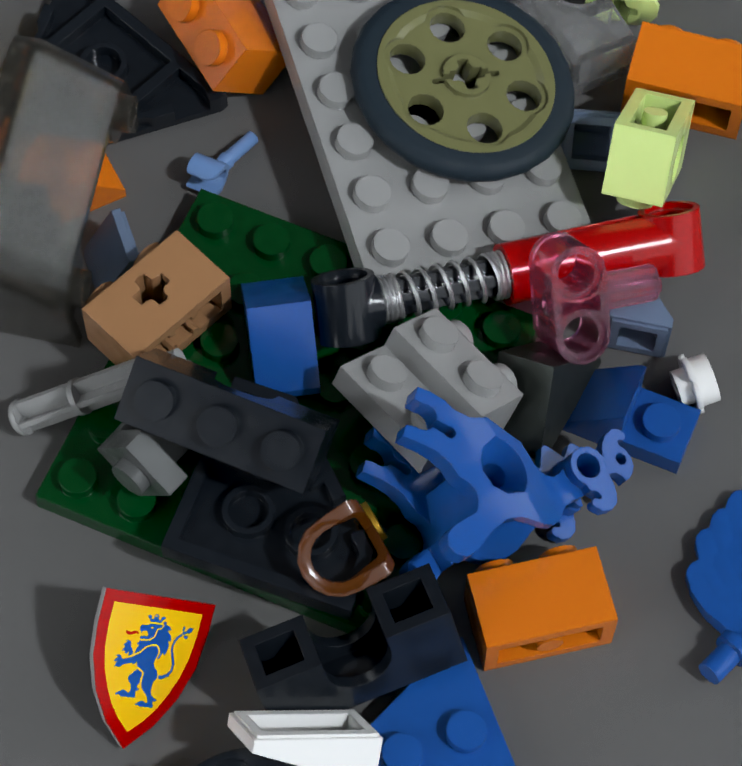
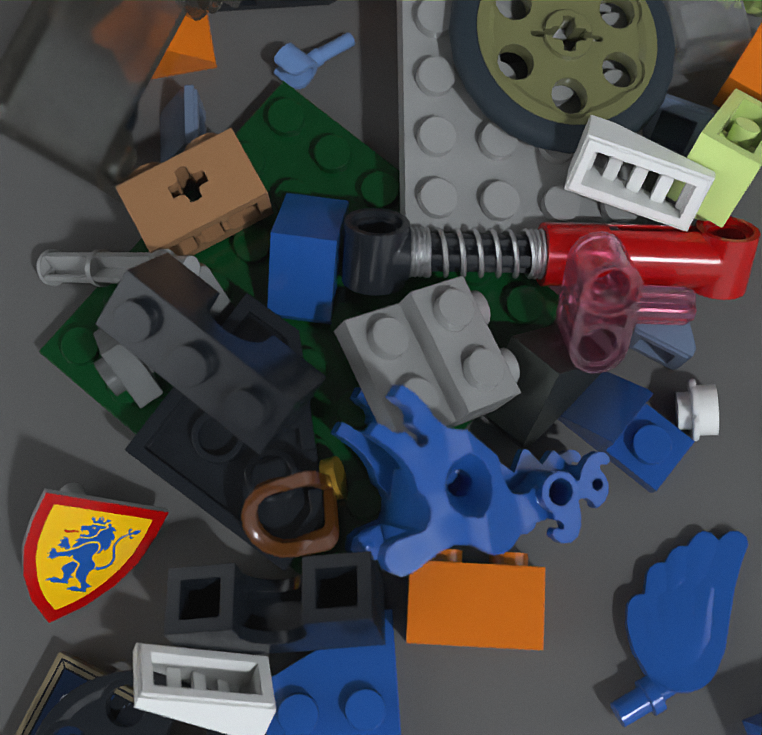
camera: 20 degrees right, 15 degrees up
(572, 157) = (627, 146): none -> white slope

